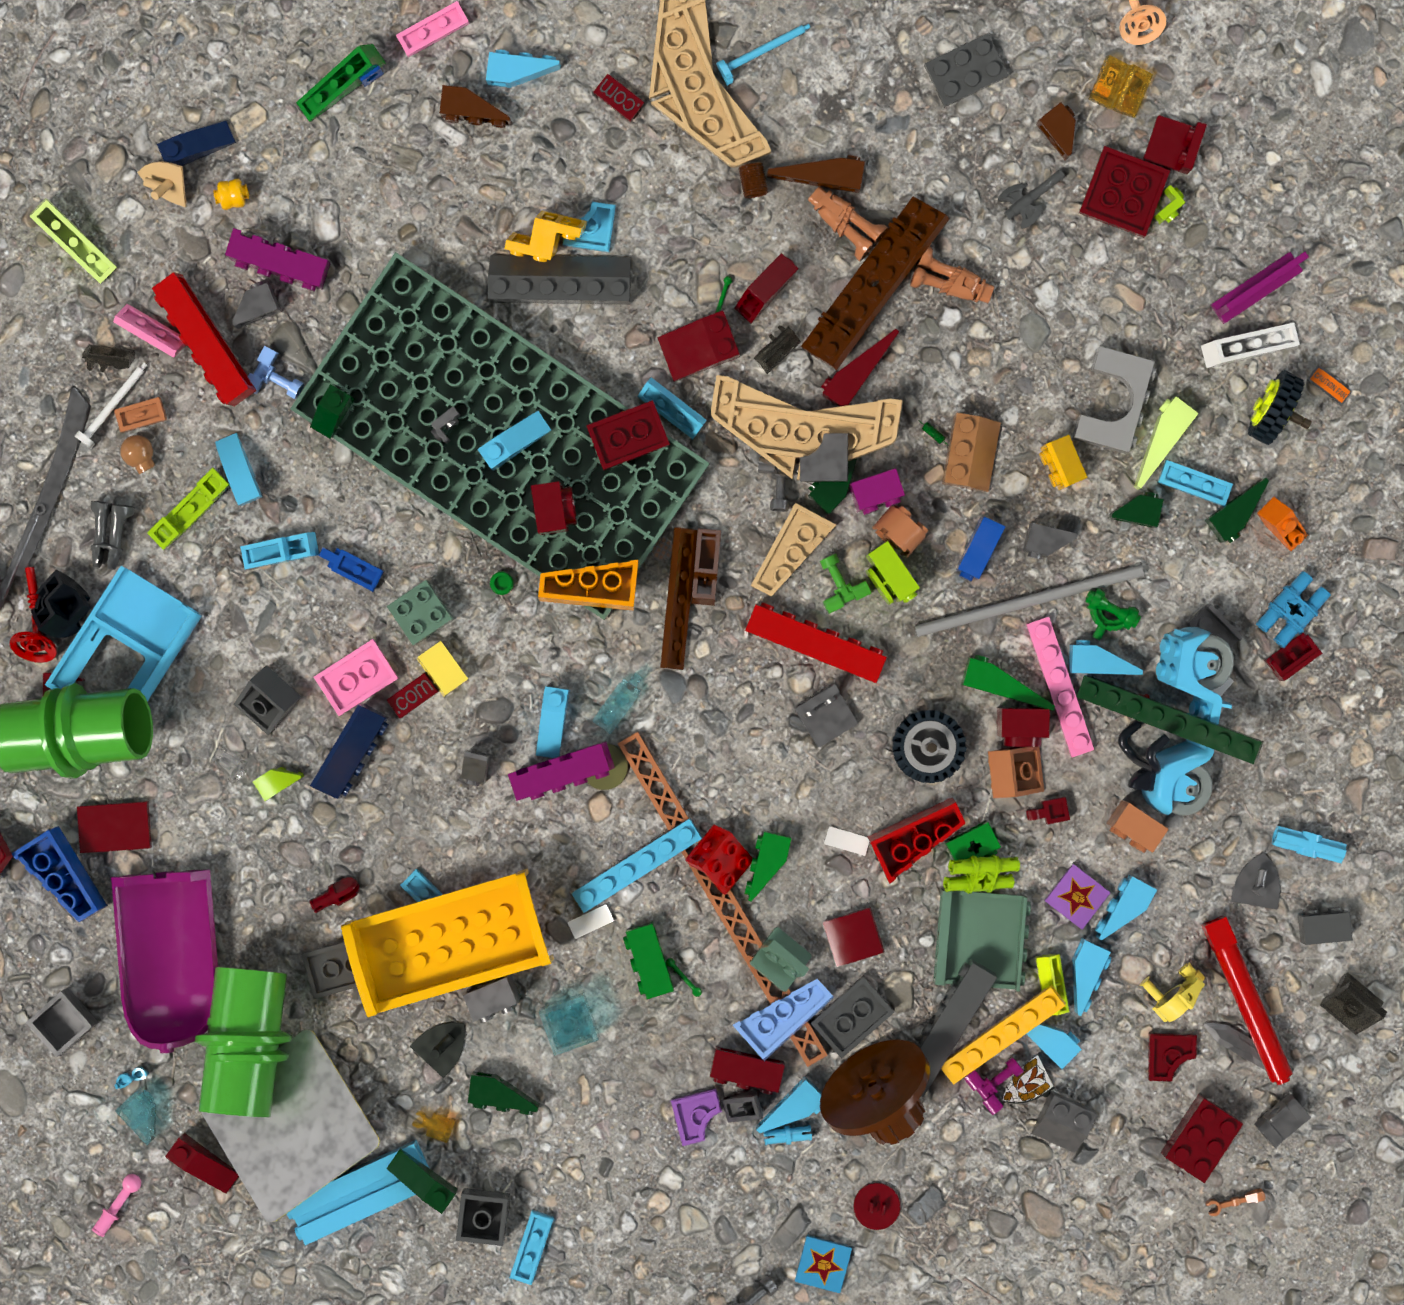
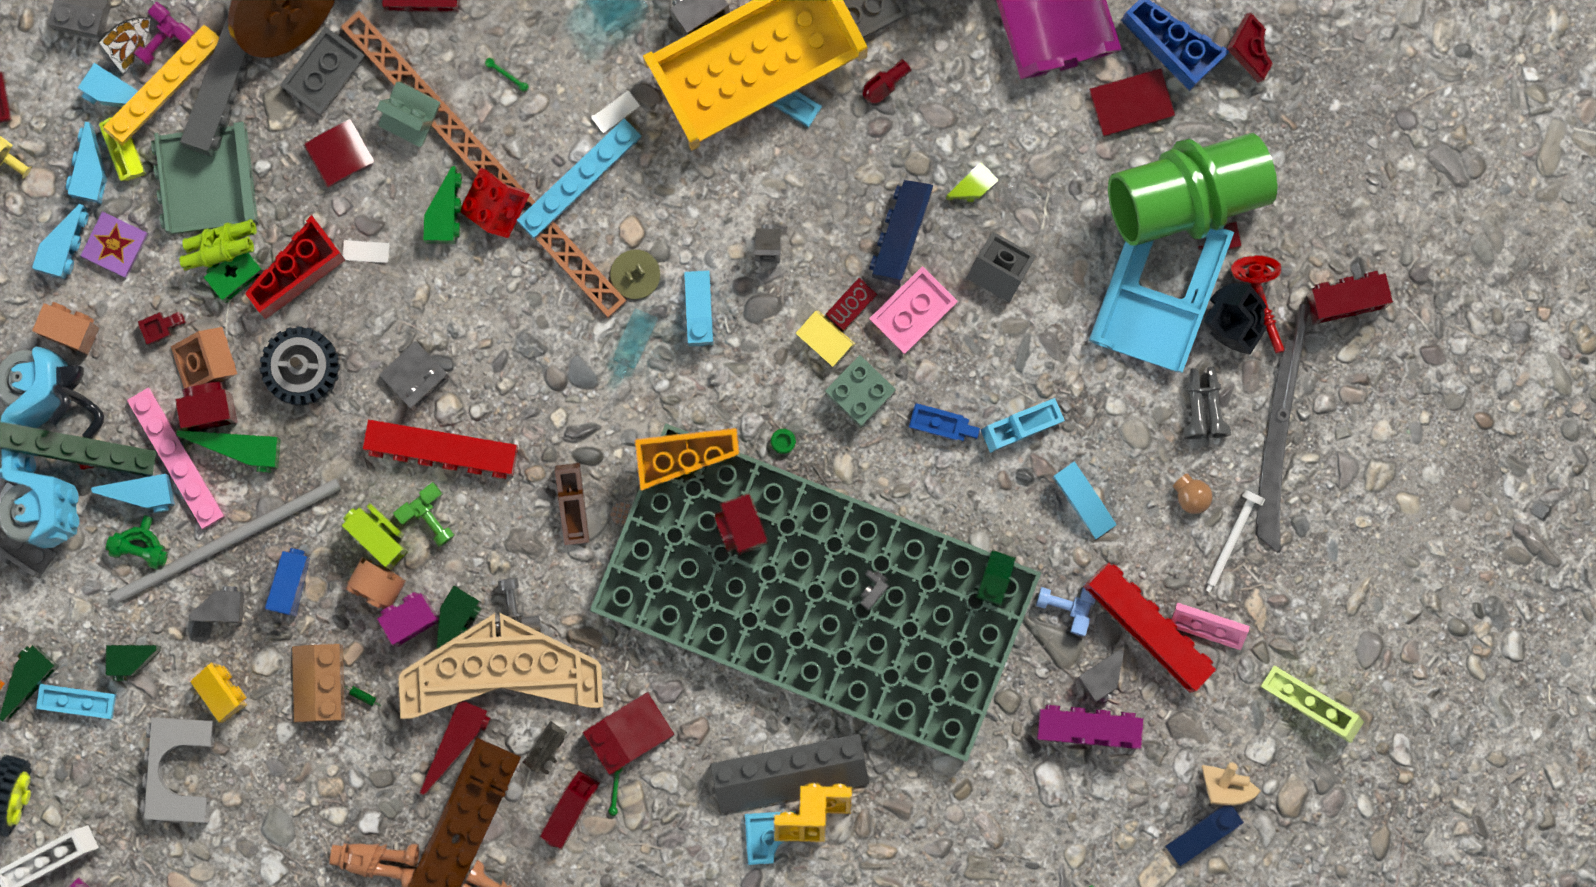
camera: 170 degrees right, 5 degrees down
(108, 356) = (1247, 589): clear smoke plate -> none
(140, 415) = (1199, 535): nougat plate -> none
(189, 510) = (1126, 447): lime slope -> none
(231, 194) = (1155, 788): yellow piece -> none
(514, 440) = (797, 589): medium azure slope -> none
(560, 771) = (677, 257): magenta wedge -> none
(628, 435) = (680, 619): dark red plate -> none
(648, 960) = (546, 83): green brick -> none
(672, 408) = (642, 662): medium azure plate -> none
(678, 598) = (593, 464): reddish brown plate -> none
(778, 1022) = (396, 50): light blue wing -> none
(794, 543) = (485, 547): tan wing -> none
(828, 462) = (464, 637): flat silver tile -> none
(1169, 427) = (115, 751): yellowish green slope -> none

